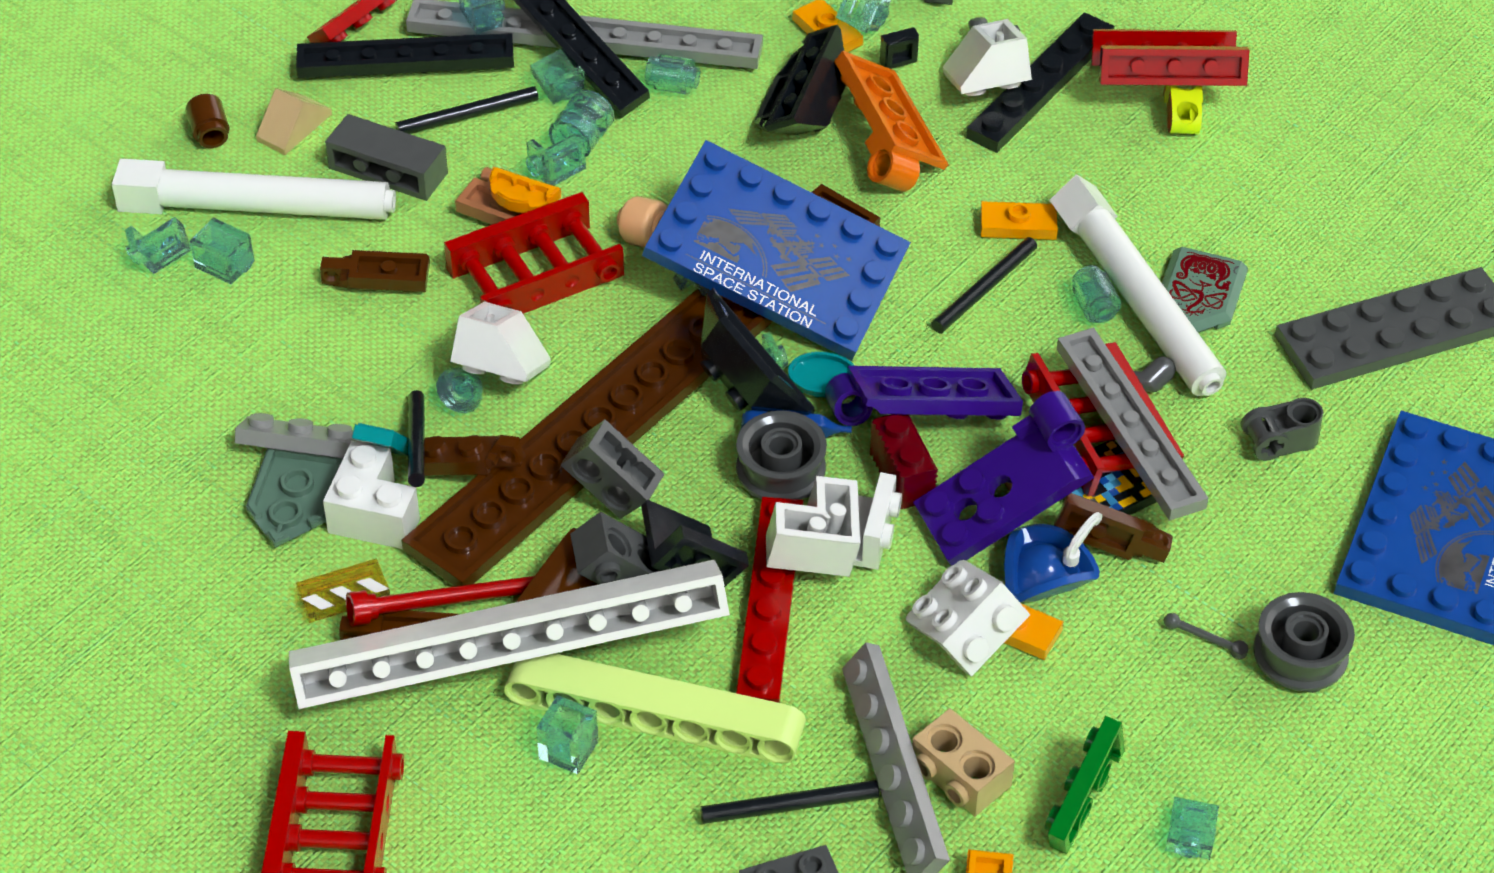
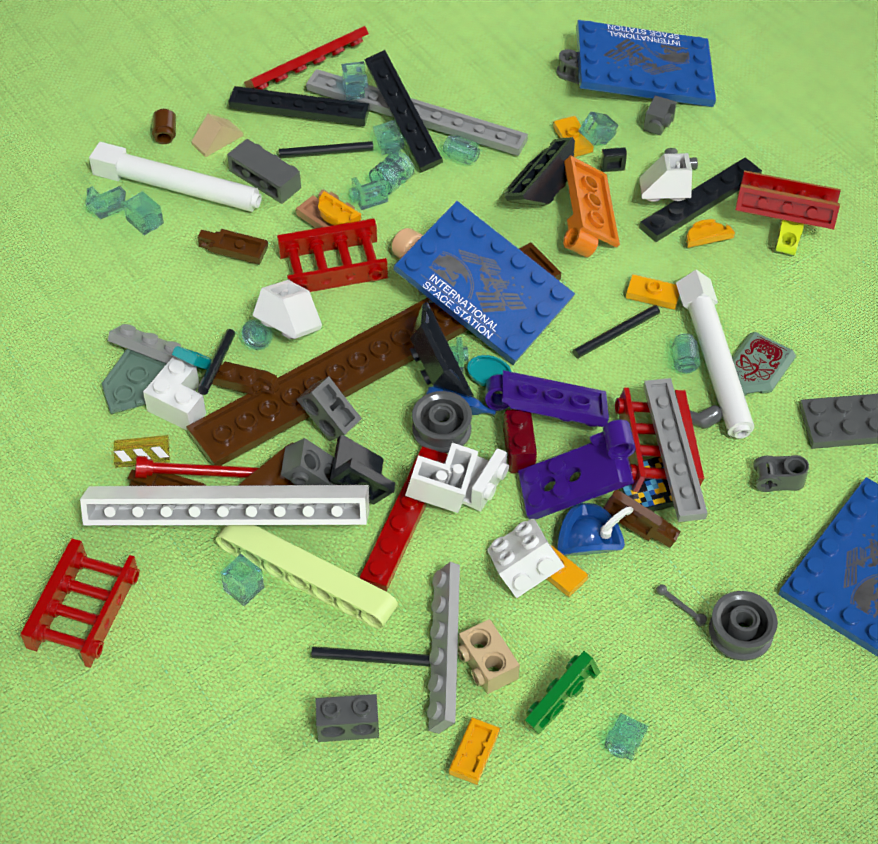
camera: 15 degrees right, 5 degrees up
(1068, 124) = (707, 232): none -> light orange plate

